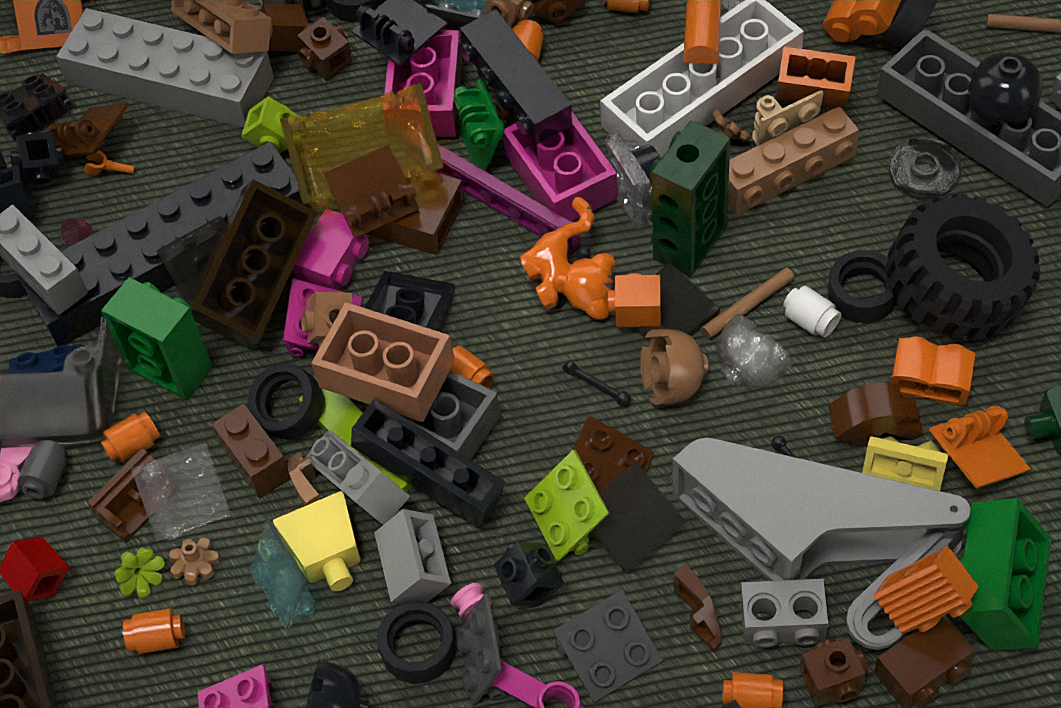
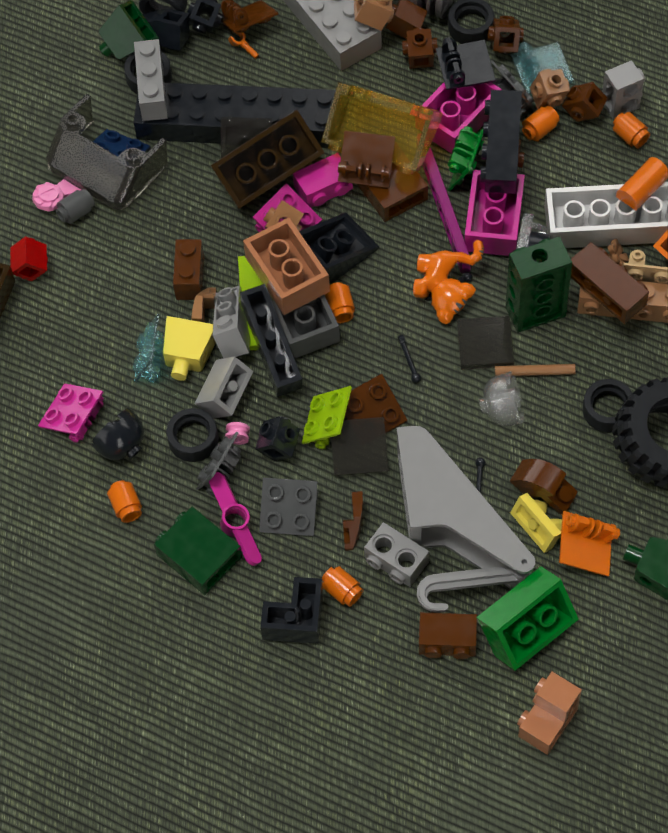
camera: 35 degrees right, 5 degrees up
(75, 230) = (195, 74): clear pink hinge -> none
(119, 501) = (110, 252): reddish brown hinge -> none
(129, 437) = (132, 218): orange brick -> none
(139, 572) = (81, 297): lime plant -> none
(153, 631) = (64, 335): orange brick -> none
(157, 337) = (184, 170): green brick -> none
(180, 492) = (134, 267): clear hinge -> none
(194, 560) = (115, 310): medium nougat plant -> none
(264, 124) = (350, 73): lime brick -> none
(268, 382) = (216, 243): black tyre -> none
(636, 300) = (466, 325): orange brick -> none
(672, 366) = (455, 378): medium nougat cylinder -> none
(770, 149) = (609, 282): none -> reddish brown brick
(811, 311) = (564, 400): white brick -> none
(833, 671) = (393, 604): reddish brown brick -> none
(927, 591) = (468, 594): orange brick -> none
(933, 371) = (601, 481): orange brick -> none

